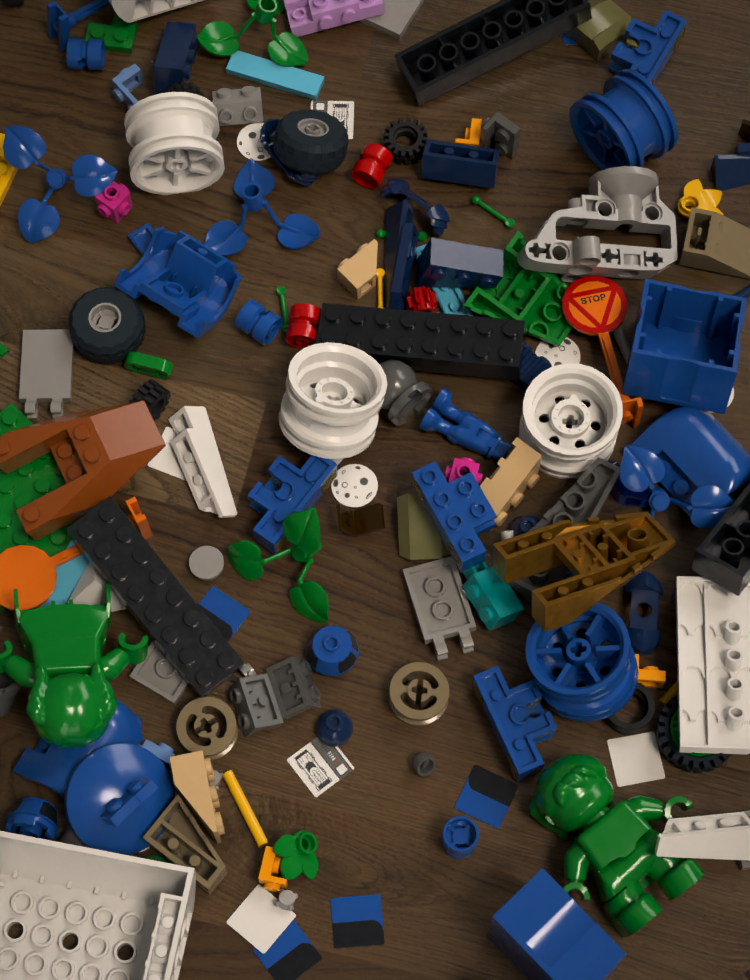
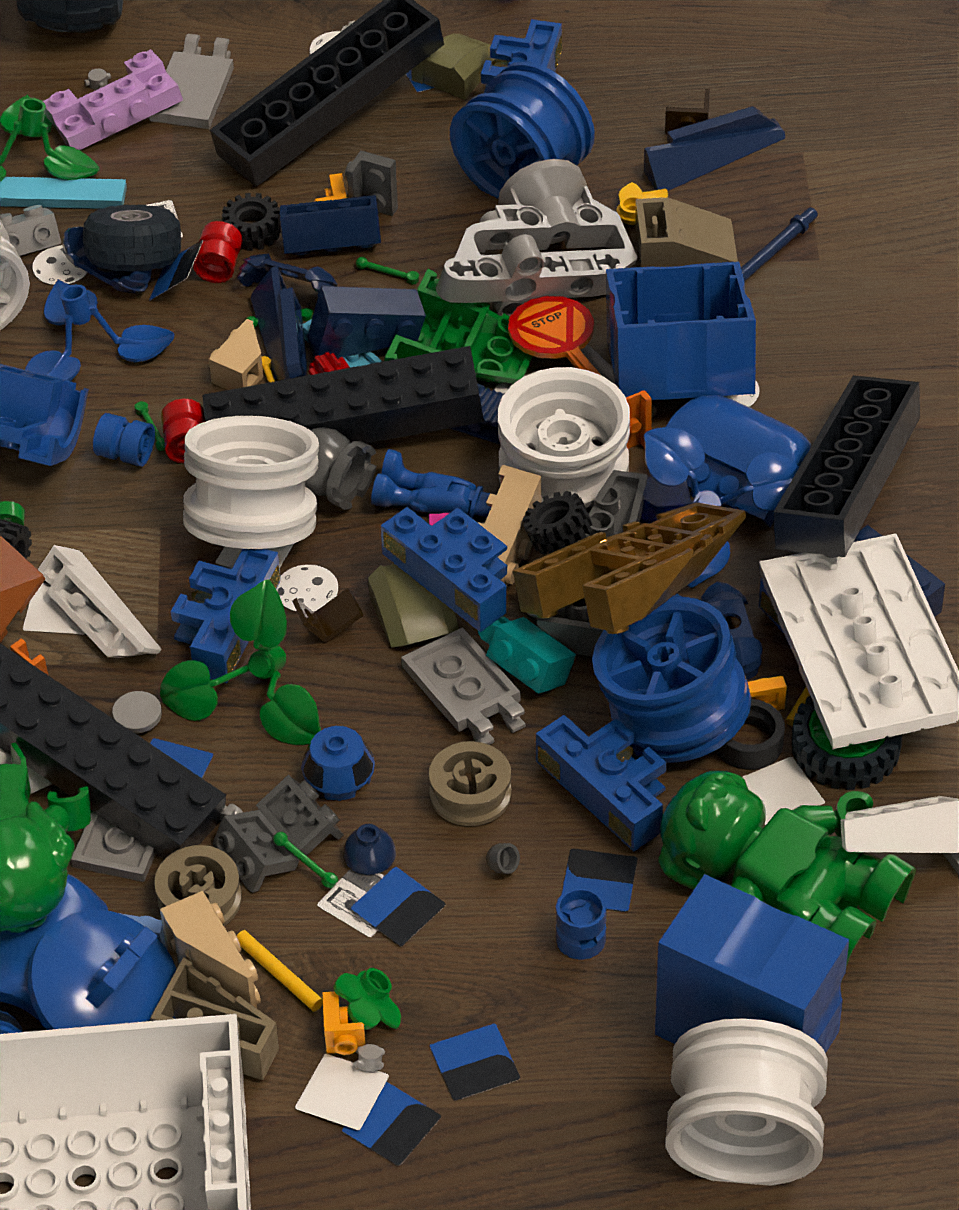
camera: 15 degrees left, 20 degrees down
(299, 743) = (328, 878): none -> green hinge
(336, 179) = (177, 271): none -> sticker
(341, 778) = (398, 906): none -> sticker
(539, 485) = (557, 522): none -> black tyre

